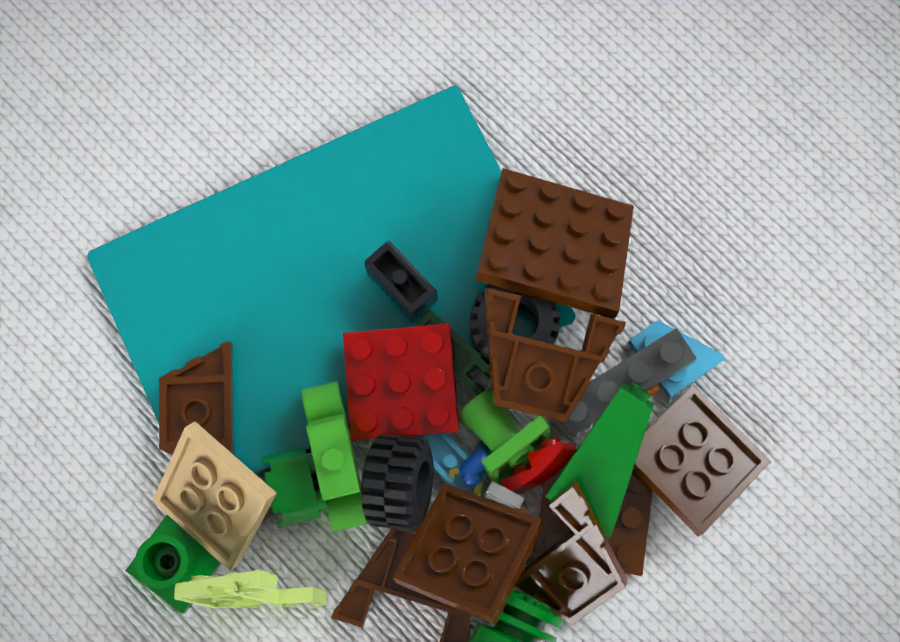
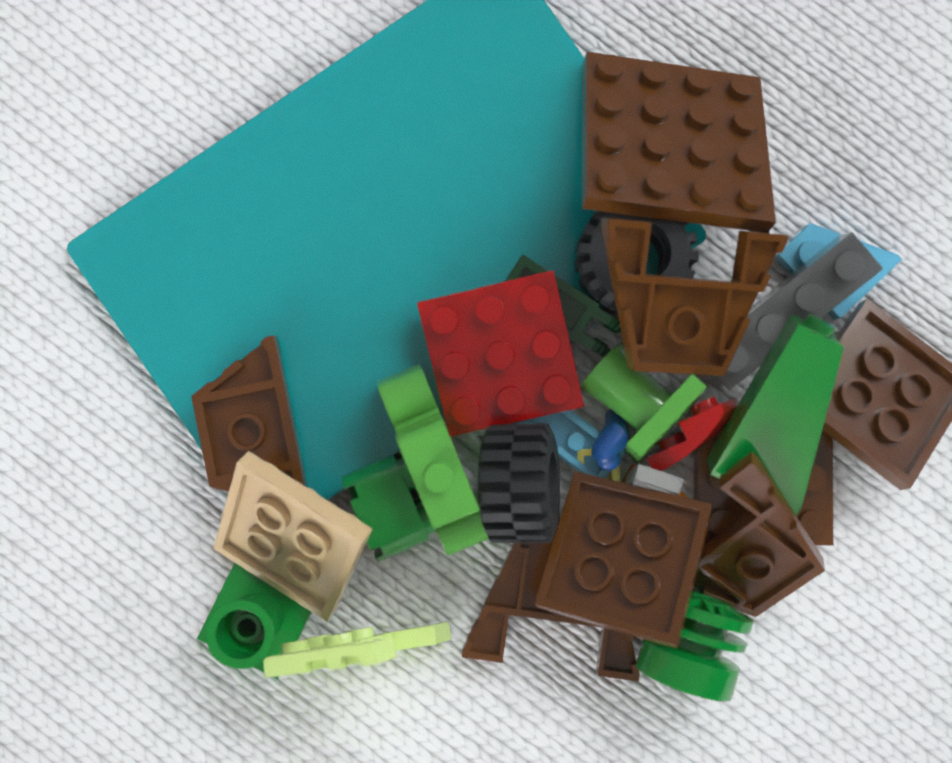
camera: 15 degrees left, 10 degrees up
(401, 281) = (480, 222): black brick -> none

